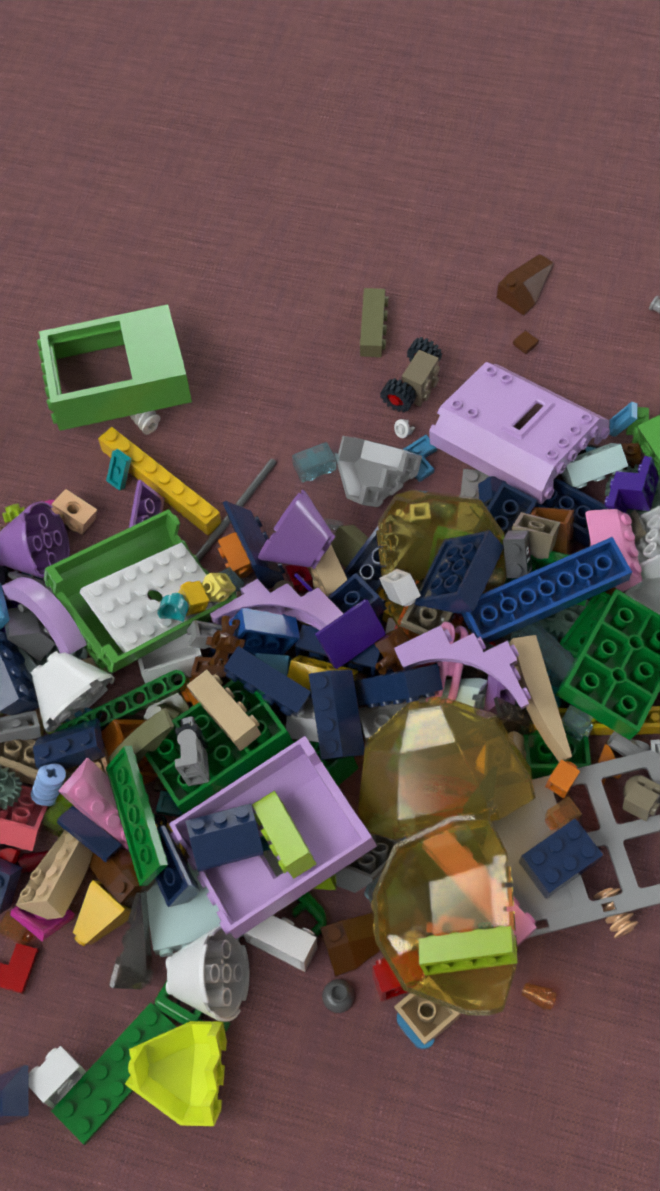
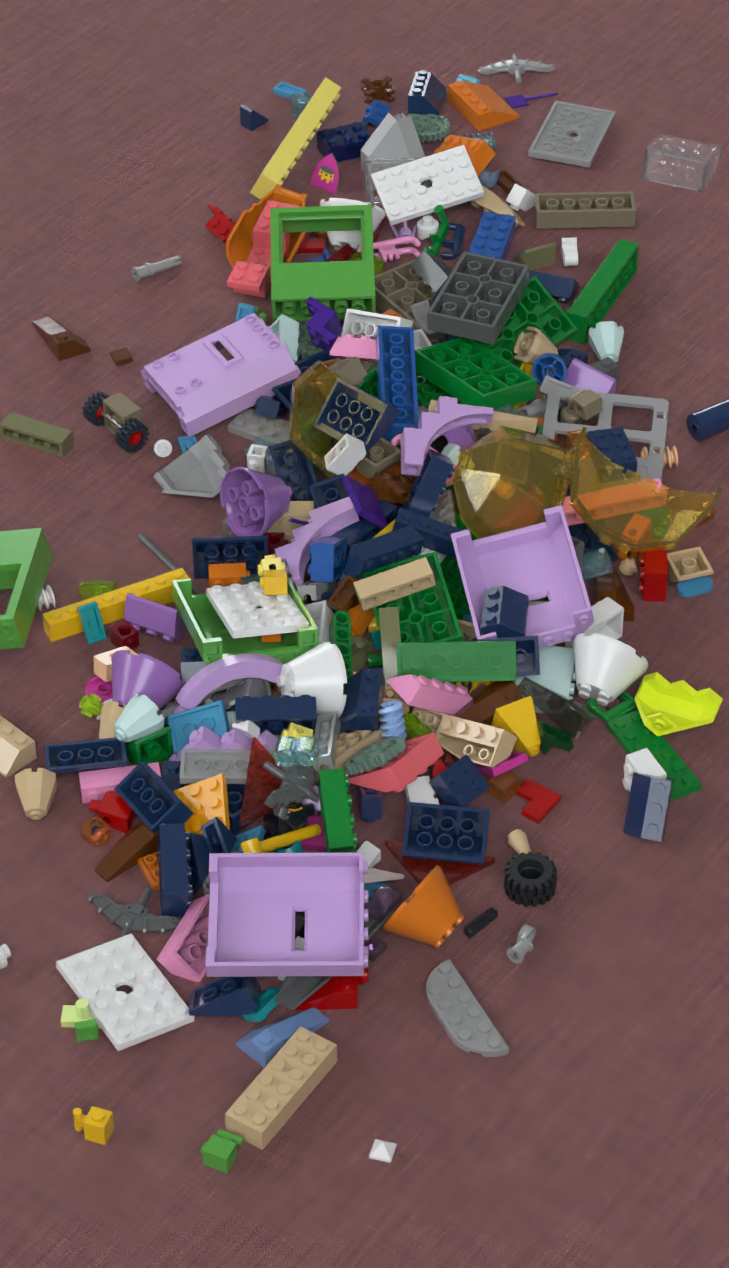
camera: 70 degrees left, 20 degrees down
(89, 833) = (450, 708): dark blue tile -> none
(99, 954) = (553, 736): none -> dark green slope
(122, 497) = (124, 635): none -> dark red brick
(173, 607) = (282, 587): teal piece -> none
(180, 457) = (95, 587): none -> clear neon green slope
(194, 757) = (425, 604): light grey hips -> none
(224, 641) = (327, 561): reddish brown pin -> none
(284, 835) = (525, 572): lime brick -> none
(314, 462) = (163, 507): clear light blue brick -> none
(338, 996) = (650, 620): dark grey piece -> none
(467, 950) = (662, 506): lime brick -> none
(517, 553) = (356, 377): dark grey brick -> none
(563, 778) = (552, 430): orange brick -> none

